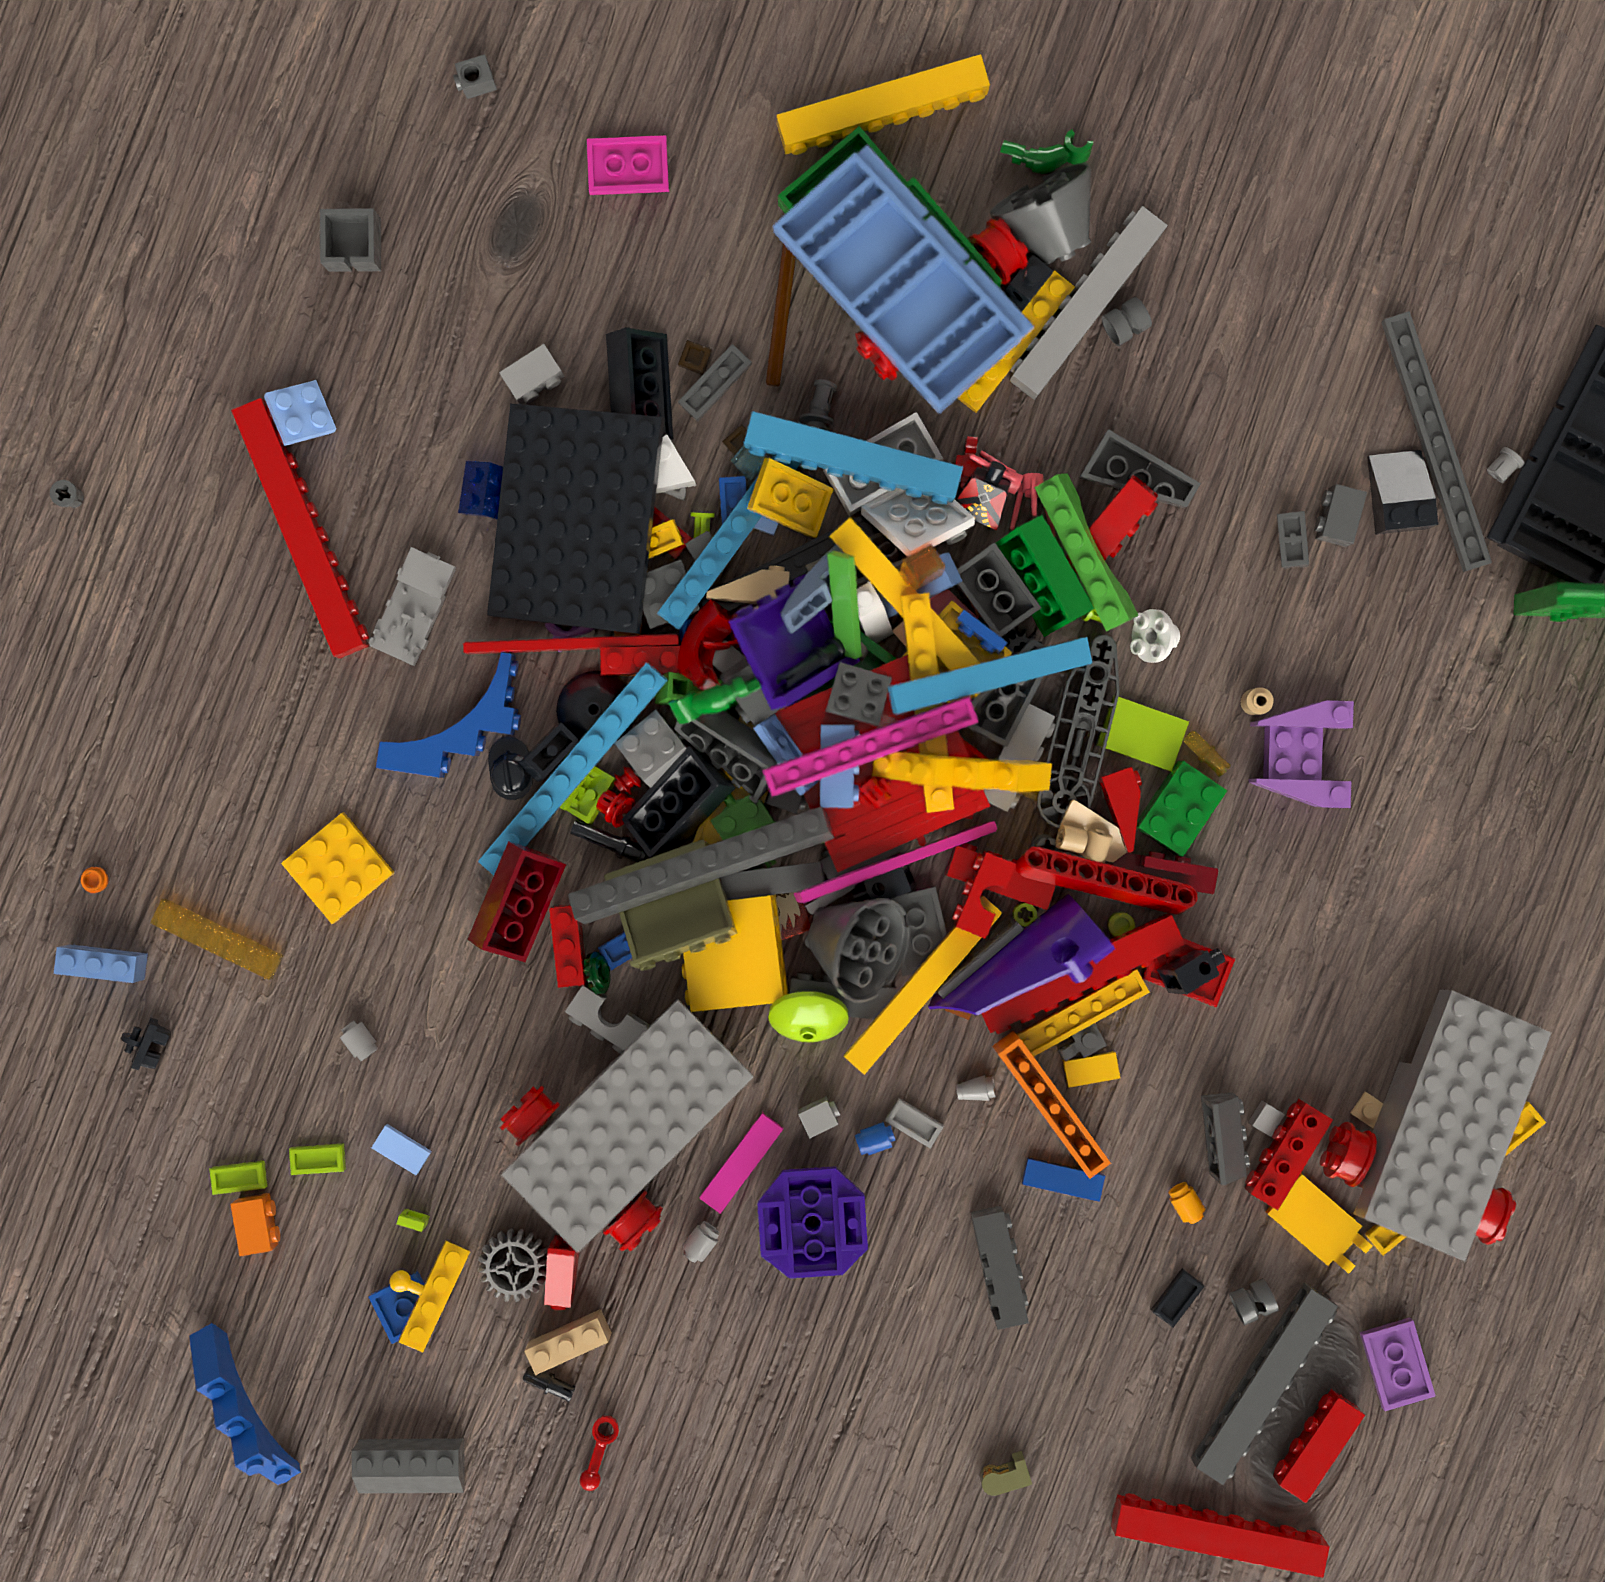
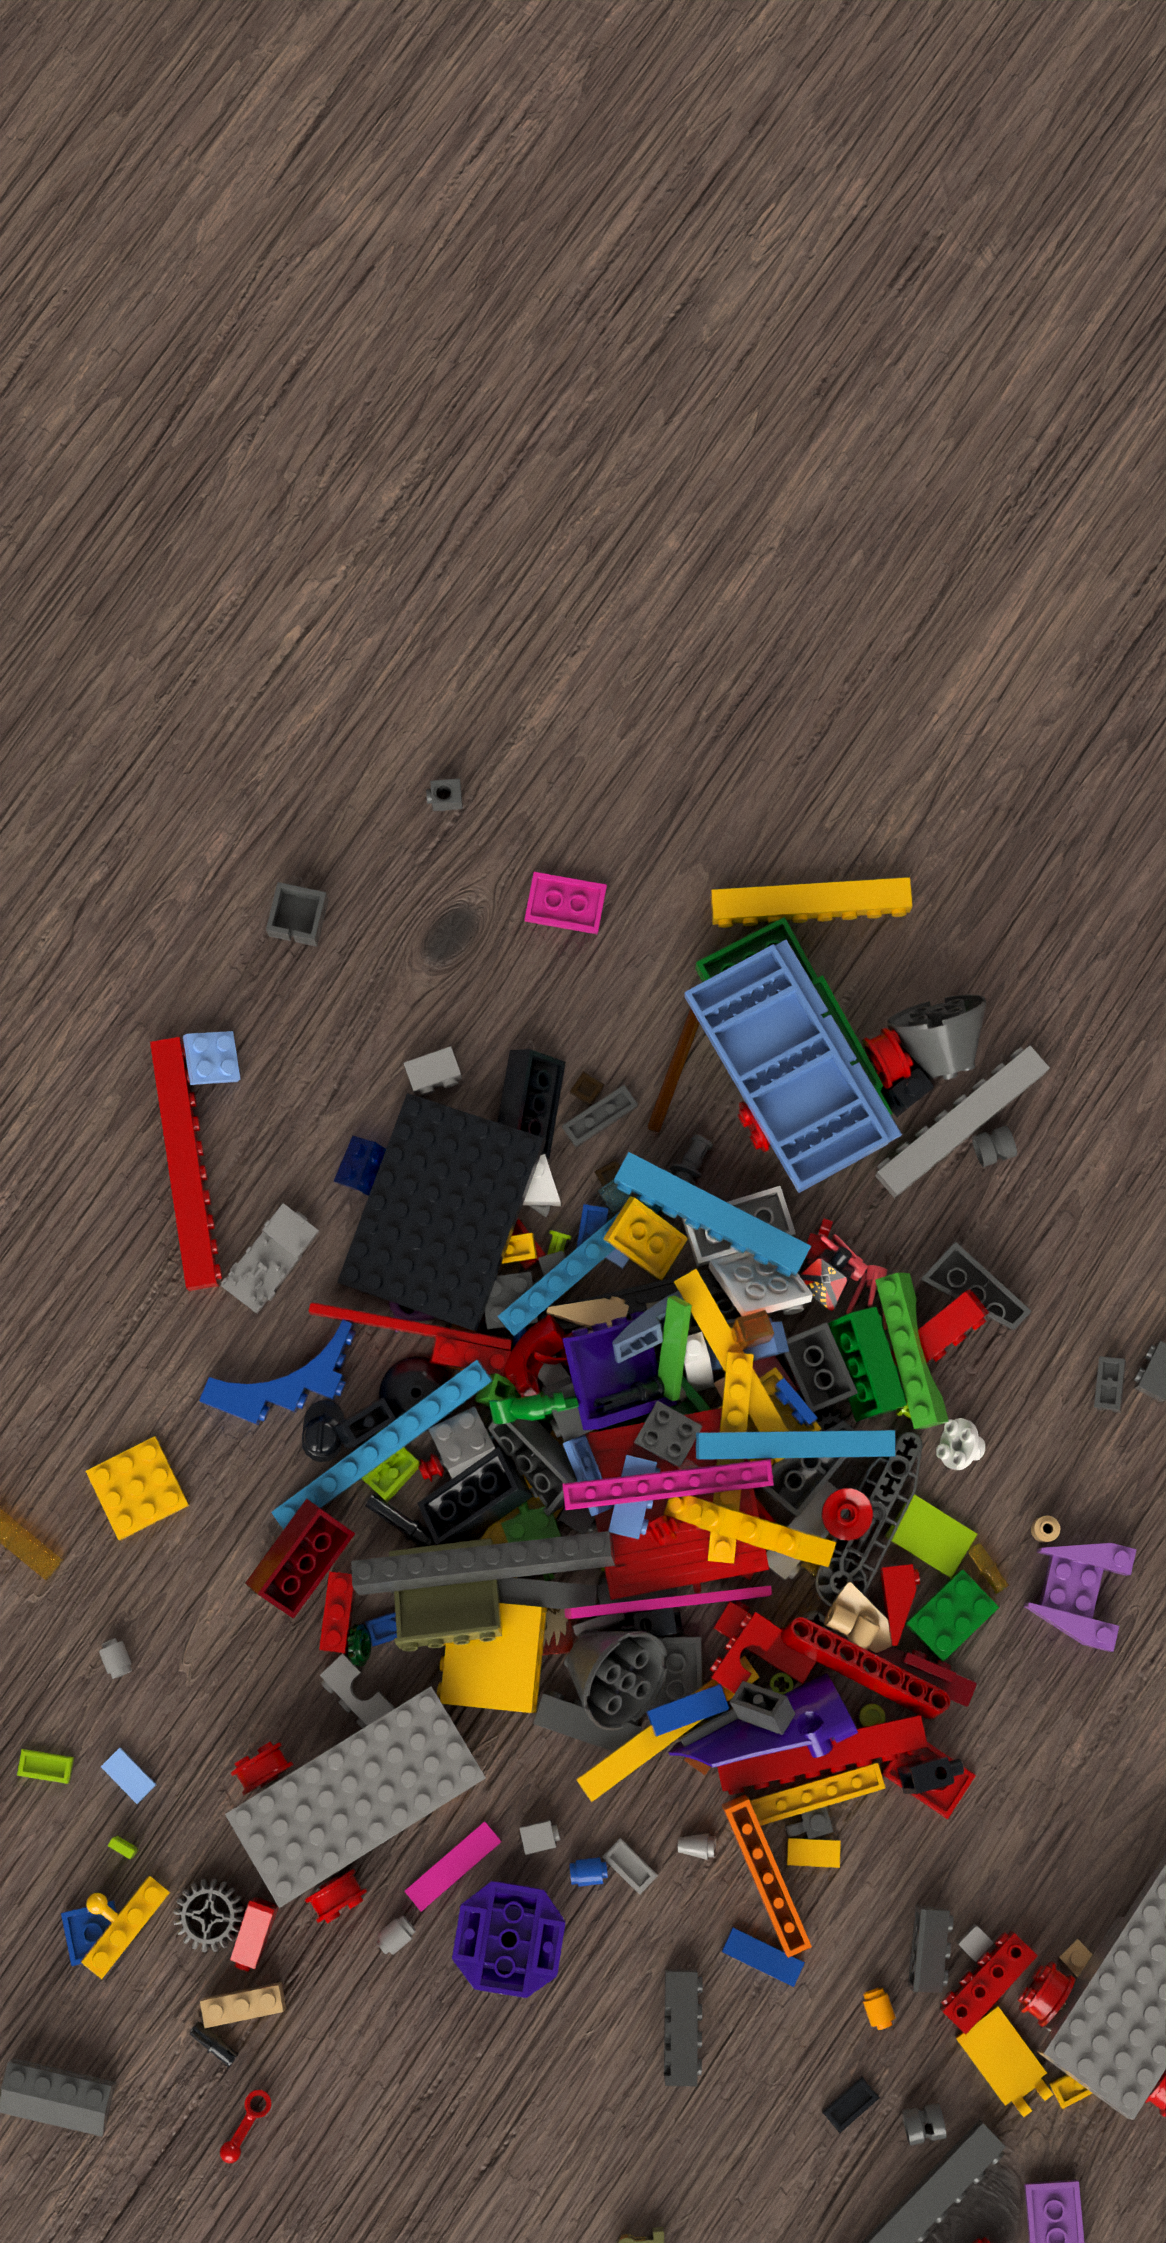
camera: 20 degrees right, 10 degrees down
(620, 802) = (413, 1489): red piece -> none
(808, 1016) = (551, 1733): lime dish -> none
(938, 963) = (687, 1710): none -> blue tile
(1014, 946) = (762, 1707): none -> dark grey brick
(1038, 312) = (909, 1123): yellow plate -> none
(1049, 158) = (953, 983): green piece -> none
(1068, 732) = (859, 1515): none -> red dish

